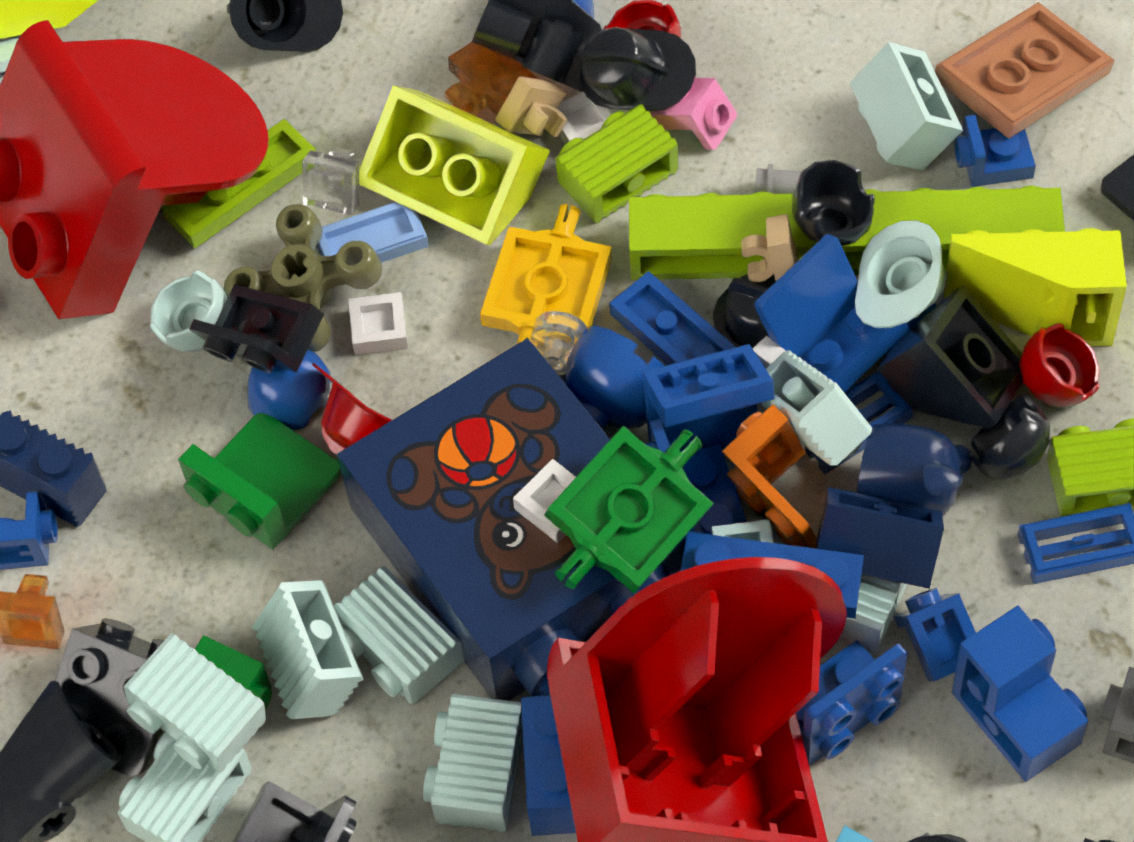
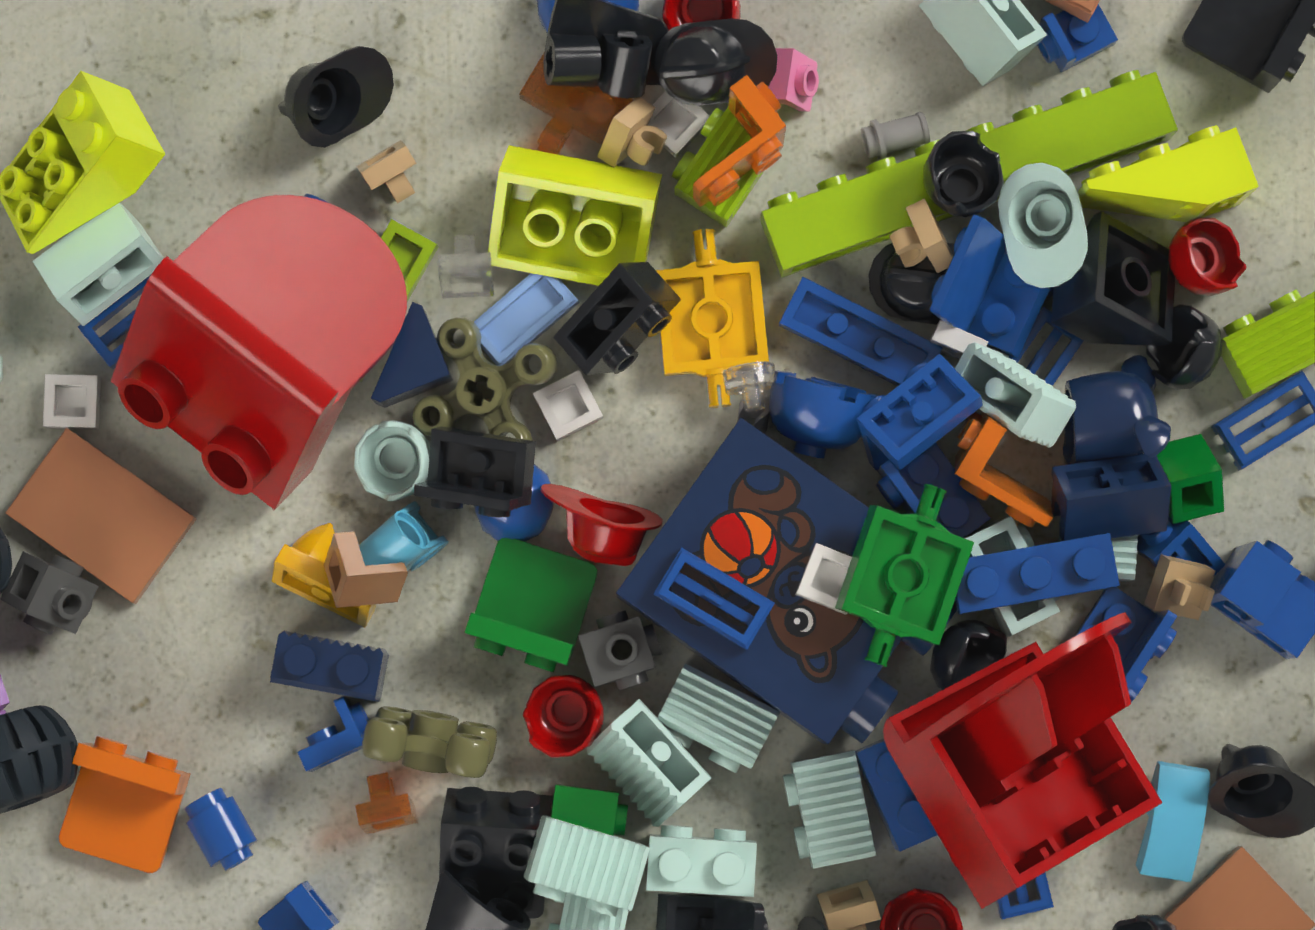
camera: 25 degrees left, 25 degrees up
(70, 394) = (303, 573): none -> yellow tile
(99, 551) = (429, 741): none -> olive gear
(106, 383) = (360, 584): none -> medium nougat panel
(161, 377) = (402, 539): none -> medium azure piece
(242, 582) = (563, 716): none -> red hair
(243, 236) = (413, 363): none -> dark blue slope
(300, 80) = (388, 168): none -> tan tile
(319, 764) = (700, 863): none -> light aqua brick
(325, 539) = (599, 644): none -> dark grey brick
(451, 244) = (617, 319): none -> black brick
(457, 516) = (674, 575): none -> blue tile
(624, 123) = (757, 113): none -> orange bracket
(930, 654) = (1181, 587): none -> tan tile
(971, 556) = (1193, 478): none -> green brick

